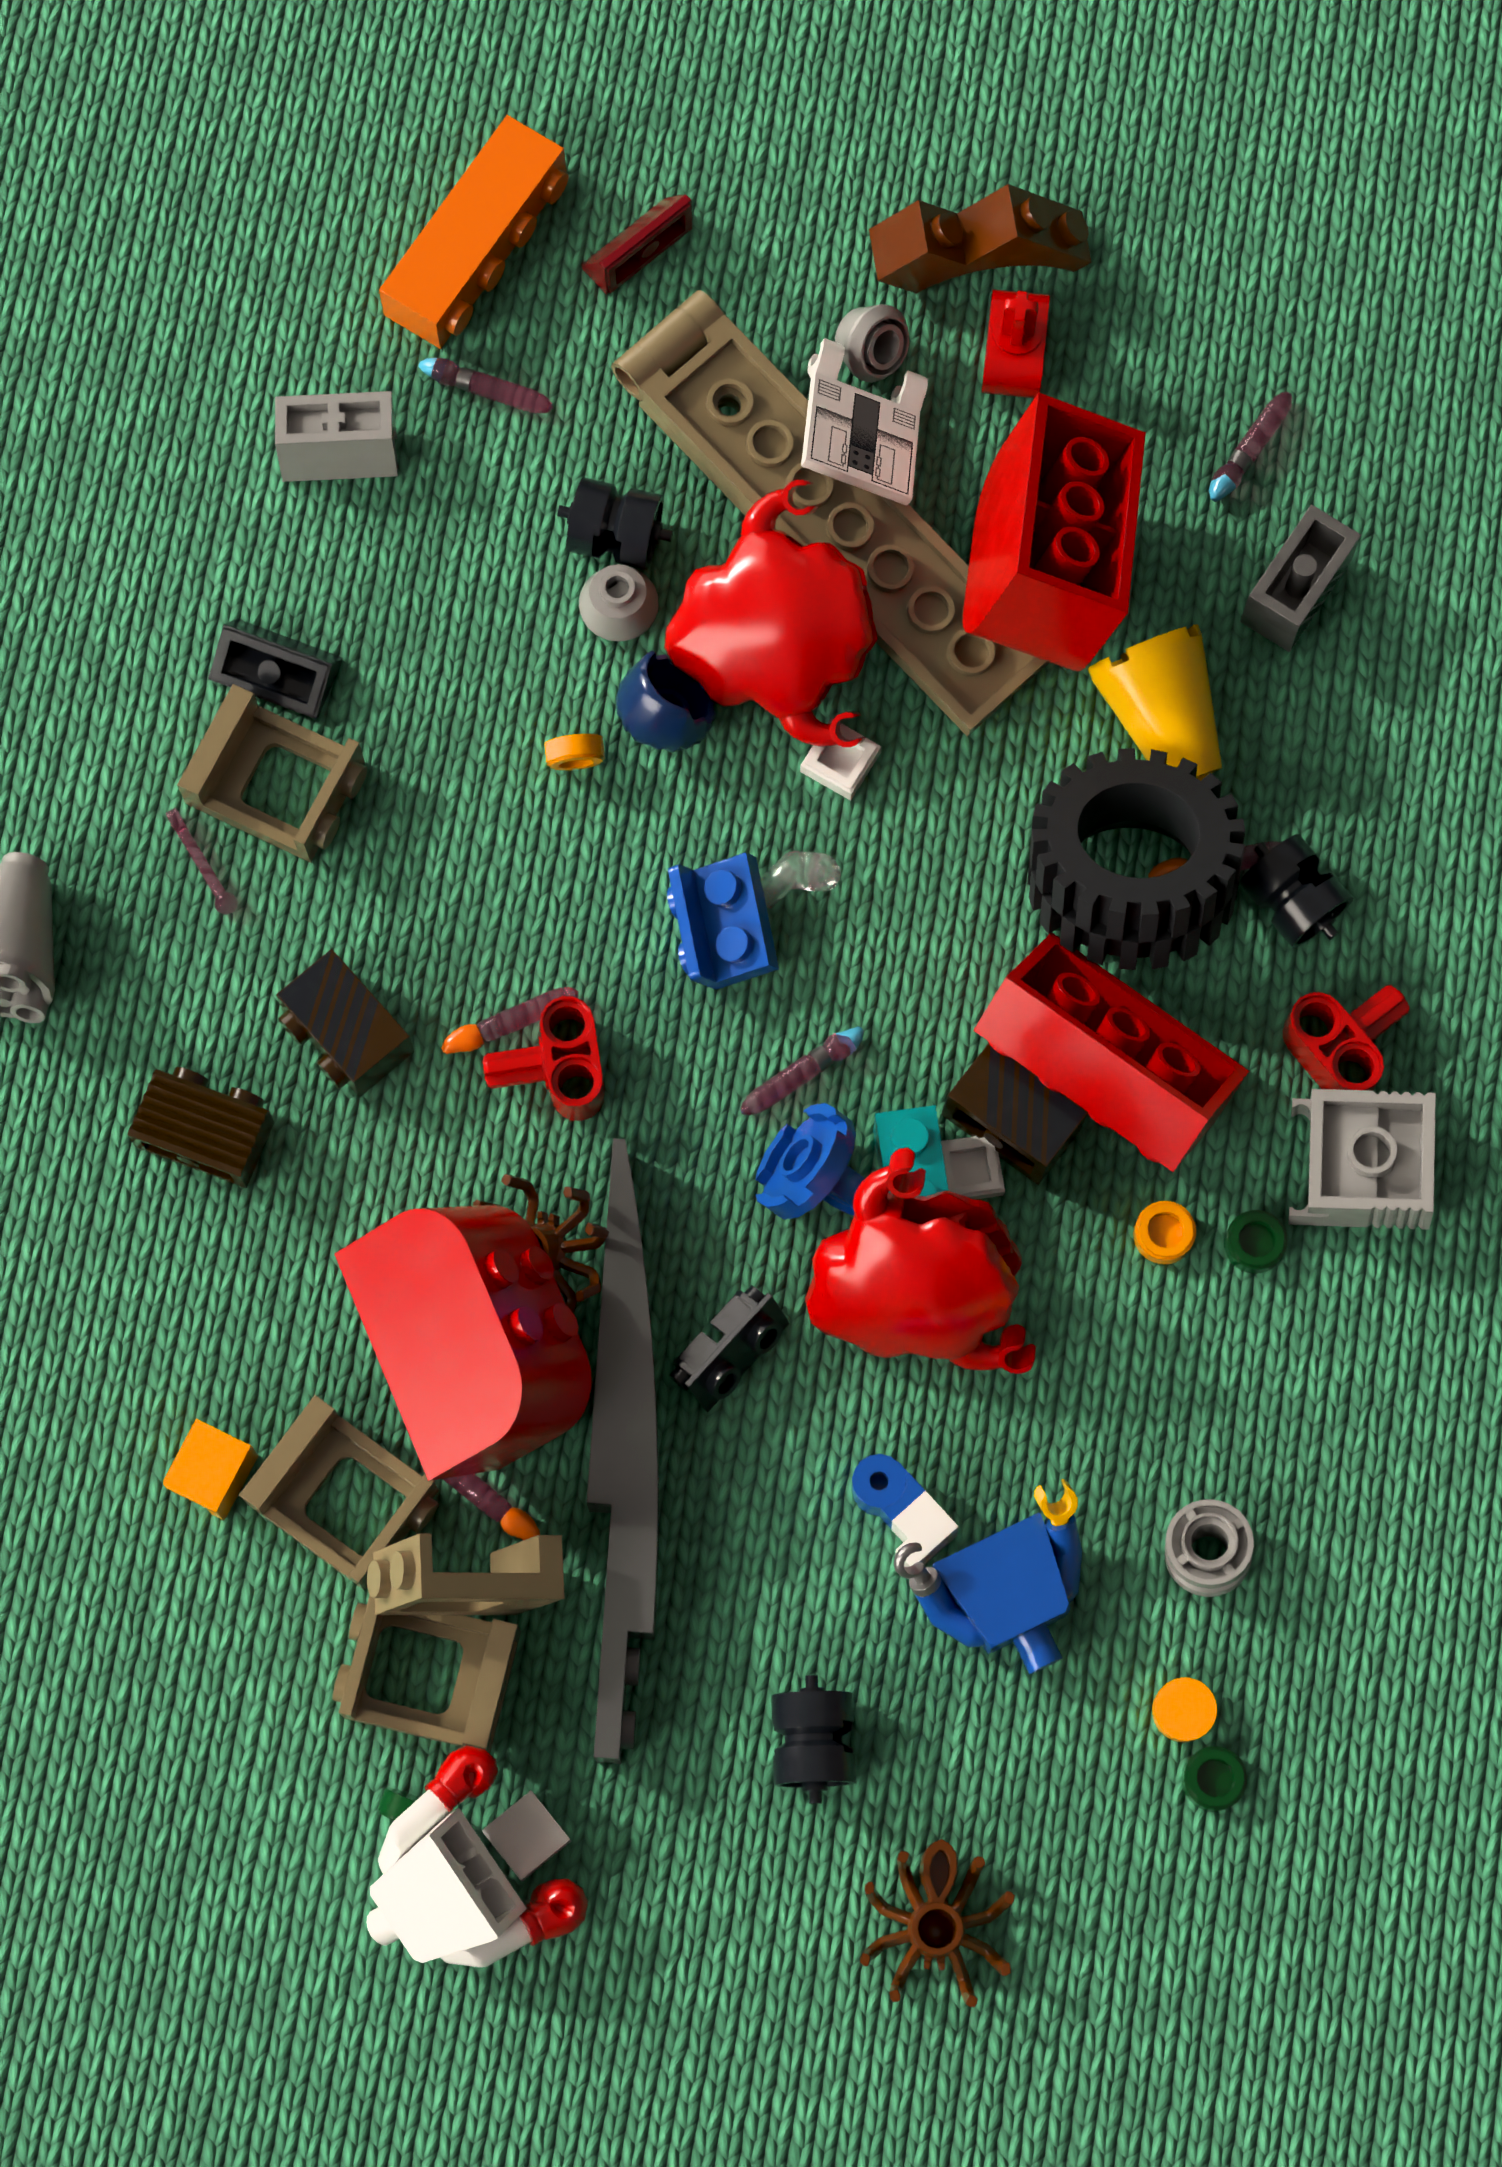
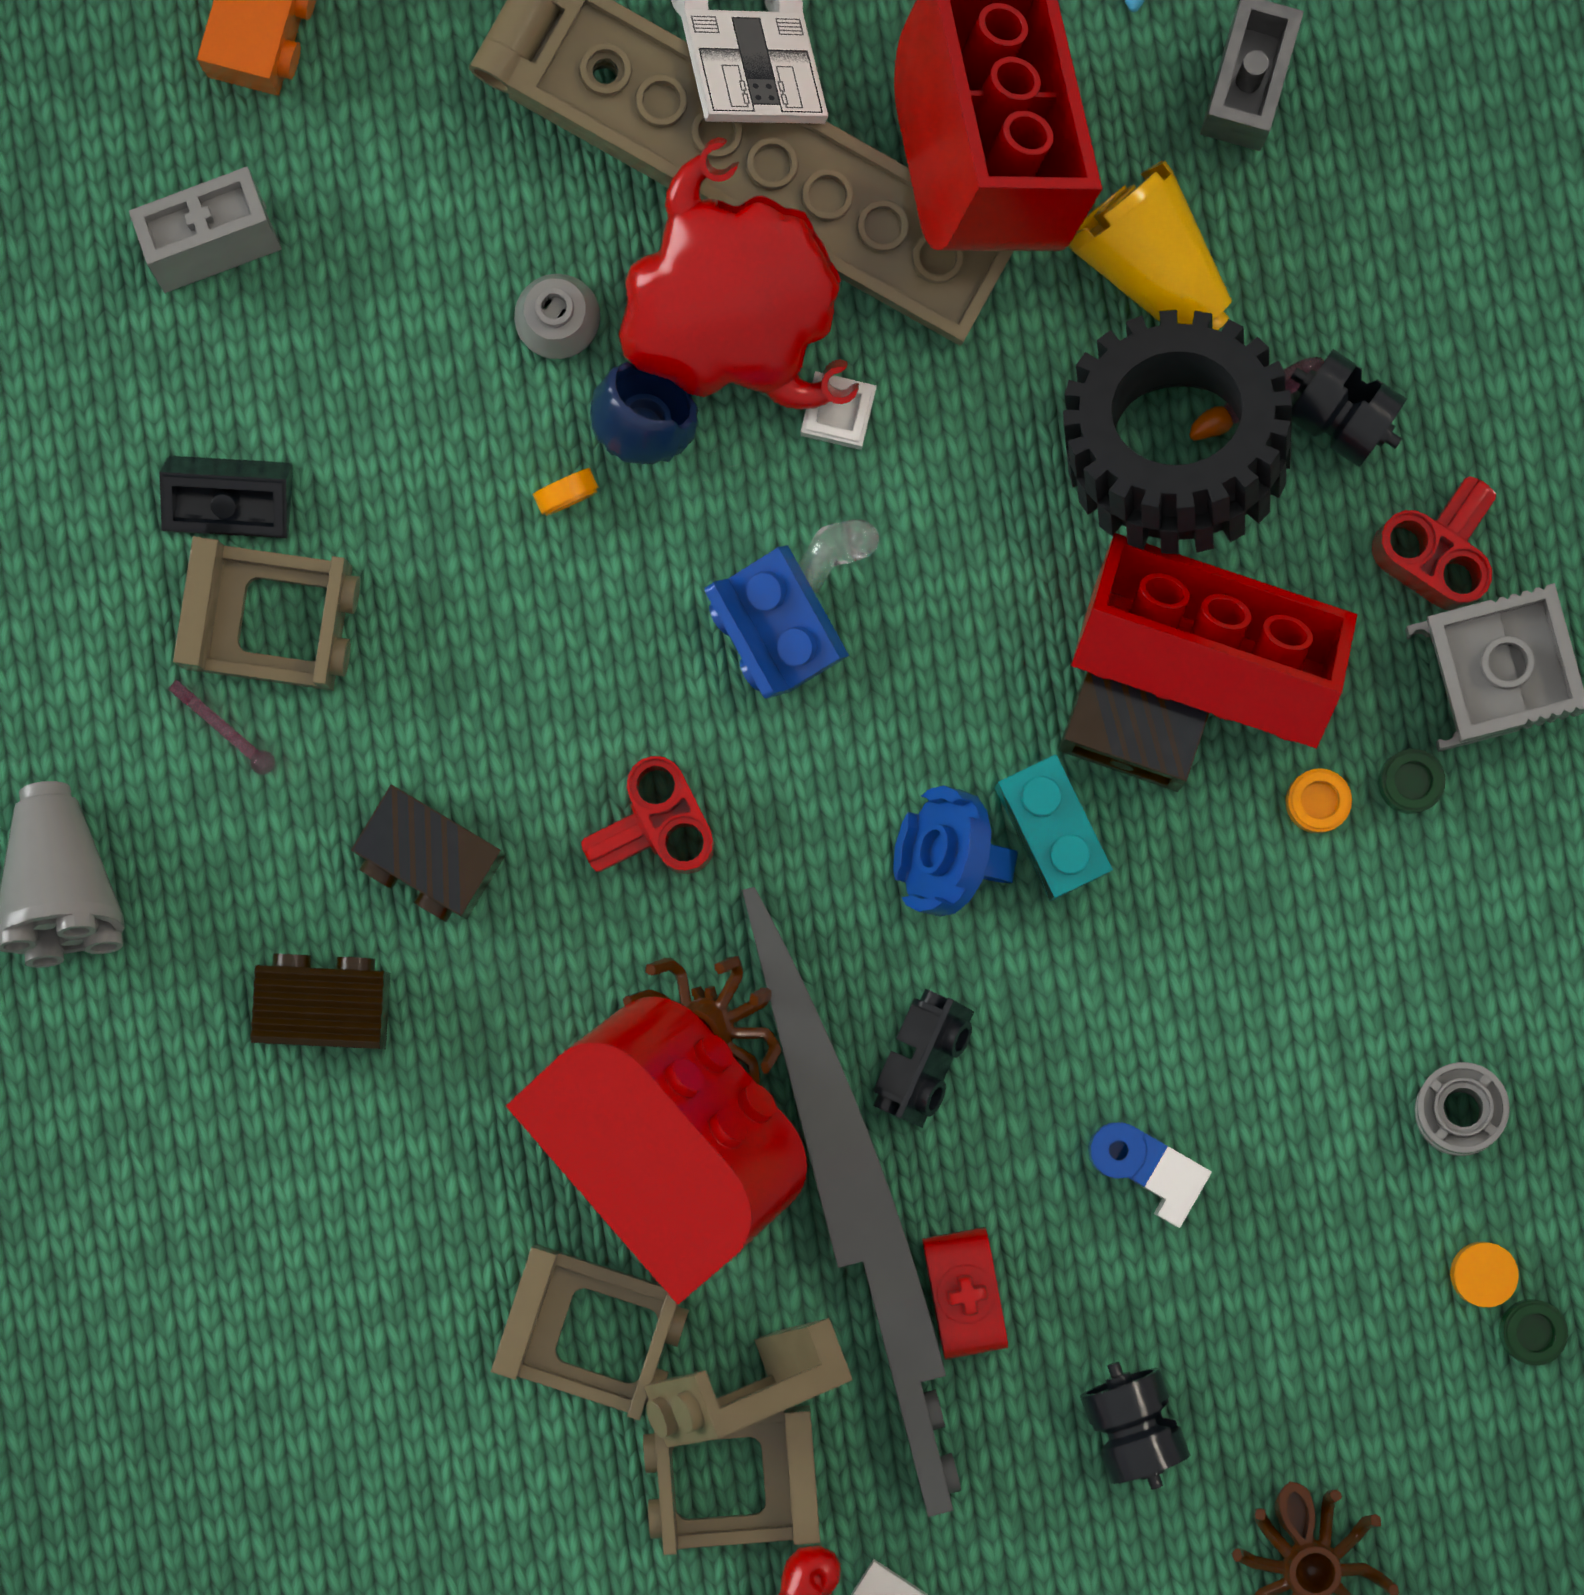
camera: 15 degrees left, 10 degrees up
(210, 1468) = (450, 1350): light orange panel -> none
(472, 1036) = (562, 821): clear pink piece -> none
(484, 385) = (298, 121): clear pink piece -> none
(511, 1519) = (766, 1300): clear pink piece -> none
(615, 523) = (533, 233): black wheel -> none
(696, 1570) = (965, 1293): none -> red beam
(835, 1048) = (904, 751): clear pink piece -> none
(920, 1275) = (1098, 936): red piece -> none
(973, 1168) = (1107, 797): white tile -> none
(1006, 1583) = (1275, 1210): blue torso -> none

